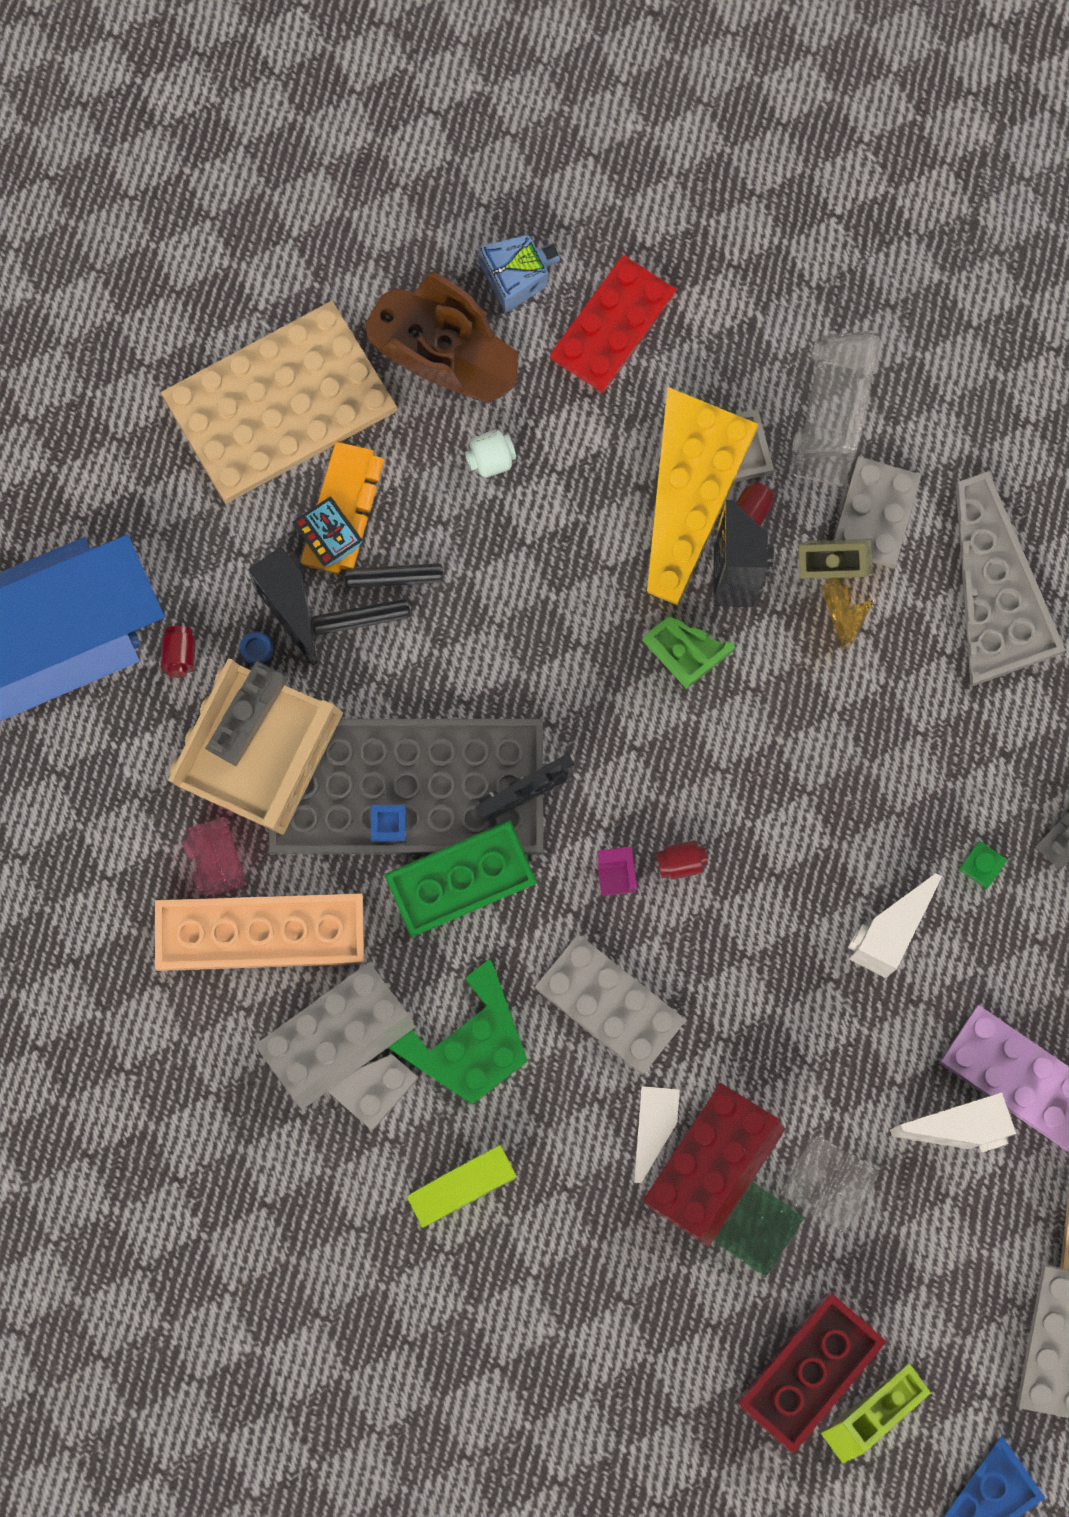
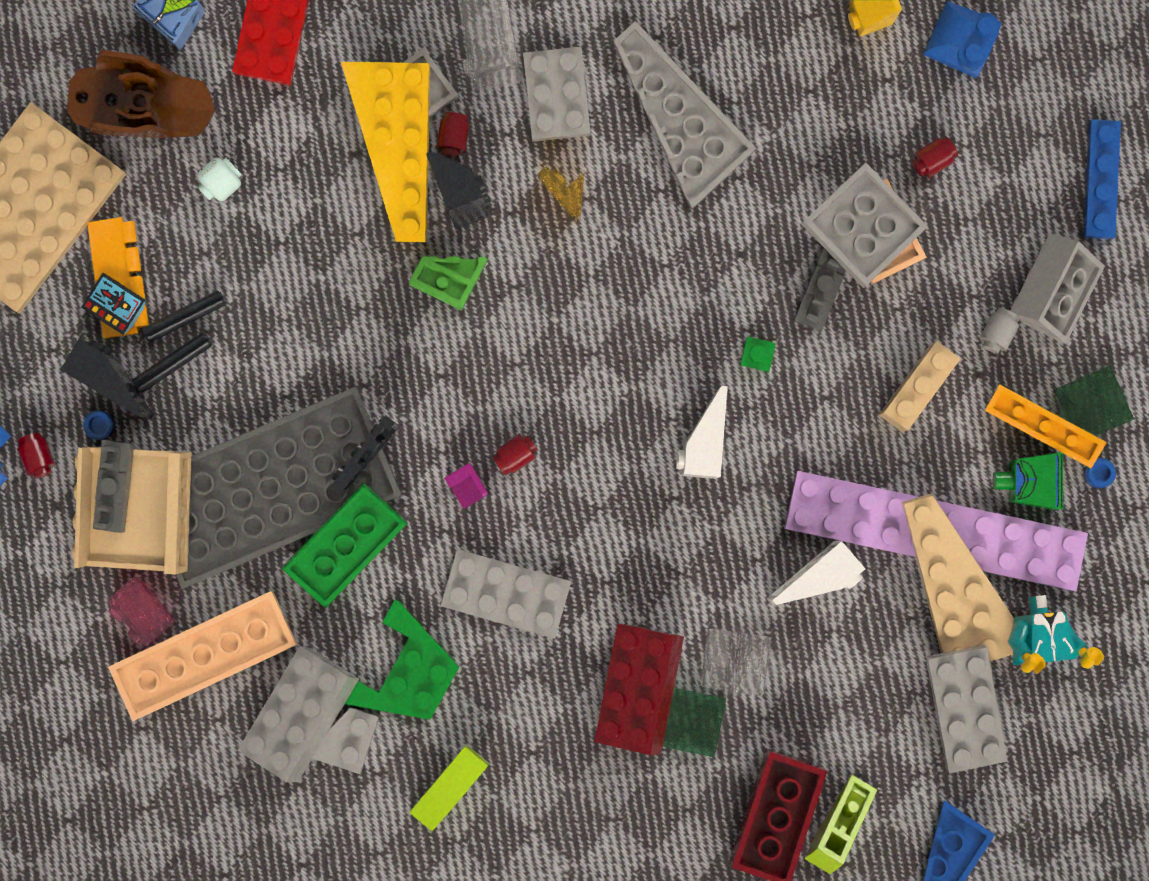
camera: 20 degrees left, 10 degrees up
(388, 823) = (266, 527): blue plate -> none
(656, 1122) = (581, 673): white sticker -> none
(835, 558) = (538, 151): olive brick -> none

